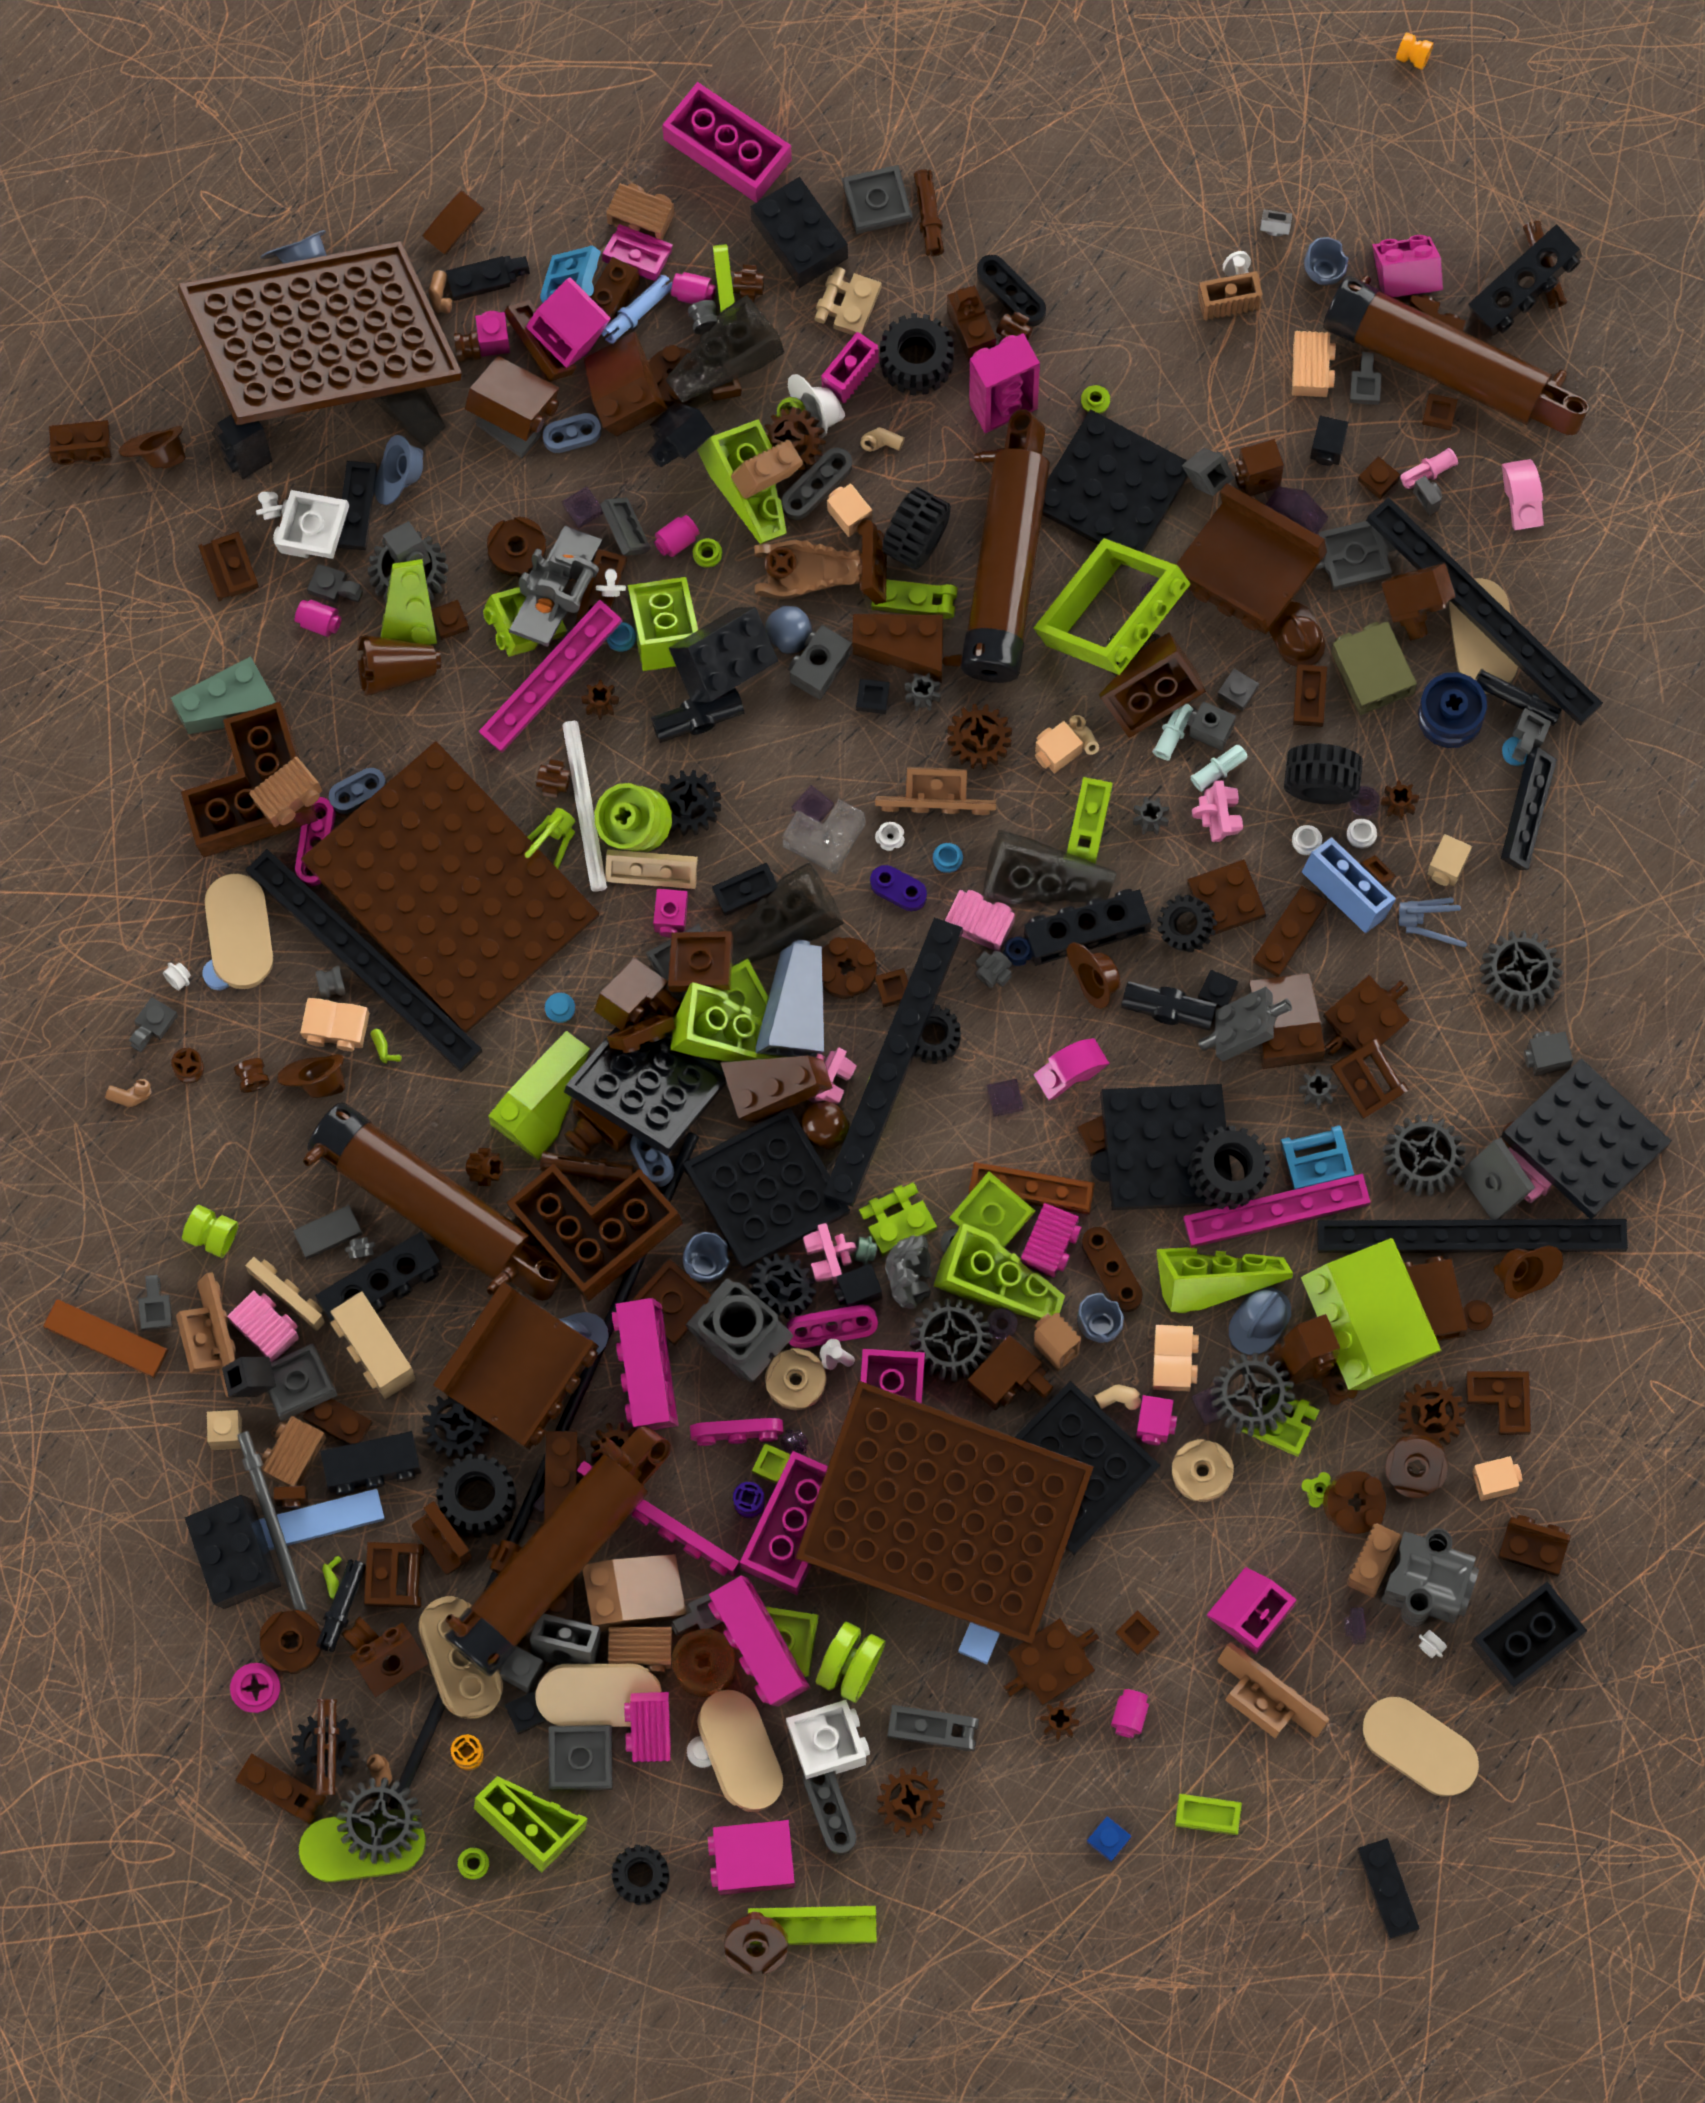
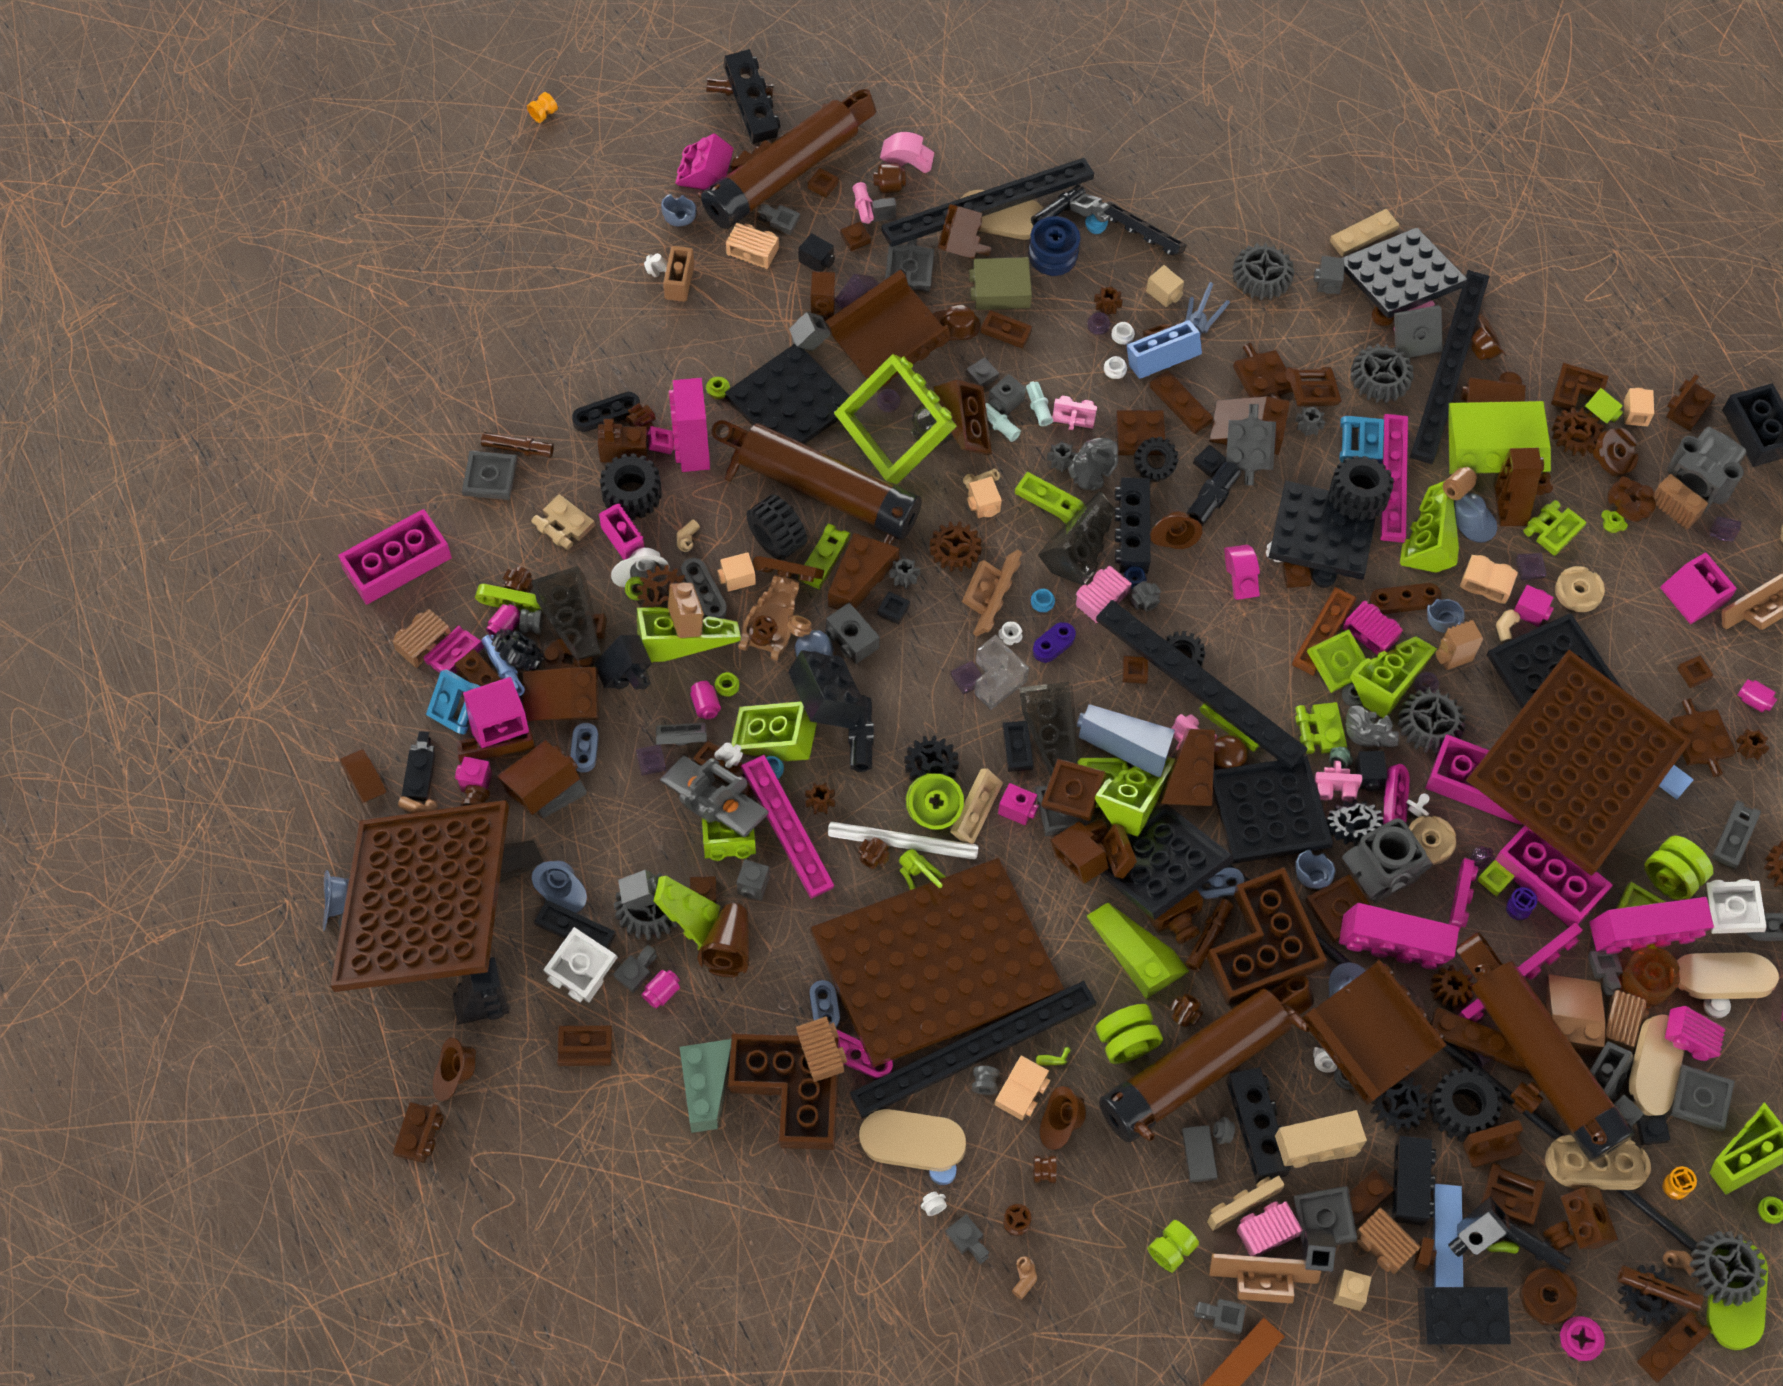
camera: 75 degrees left, 10 degrees down
(252, 1463) = (1396, 1272): dark grey bar -> none
(269, 504) = (550, 995): white plate -> none
(321, 1536) = (1490, 1224): none -> black torso
(424, 1114) = (1129, 1033): none -> lime wheel
(473, 664) = (753, 880): none -> dark grey brick
(513, 531) = (663, 833): reddish brown plate -> none
(560, 1007) = (1067, 912): dark azure plate -> none
(657, 315) = (517, 649): none -> black gear
(799, 232) = (492, 533): black brick -> none
(799, 599) = (799, 626): none -> medium nougat plate
(853, 983) = (1110, 685): reddish brown plate -> none
(1005, 1097) = (1247, 625): clear purple plate -> none
(1006, 1370) = (1469, 689): reddish brown hinge -> none
(1151, 852) = (1092, 461): none -> dark grey hair
(1239, 1398) = (1527, 538): dark grey gear -> none
(1276, 222) = (633, 230): flat silver plate -> none
(1280, 1281) = (1460, 483): none -> medium nougat brick
(1323, 773) = (1077, 332): black tyre -> none
(1432, 1644) = (1749, 488): white plate -> none
(1477, 486) = (889, 178): none -> reddish brown head
(1478, 1435) = (1605, 406): none -> lime brick
(1639, 1079) = (1364, 232): none -> tan plate

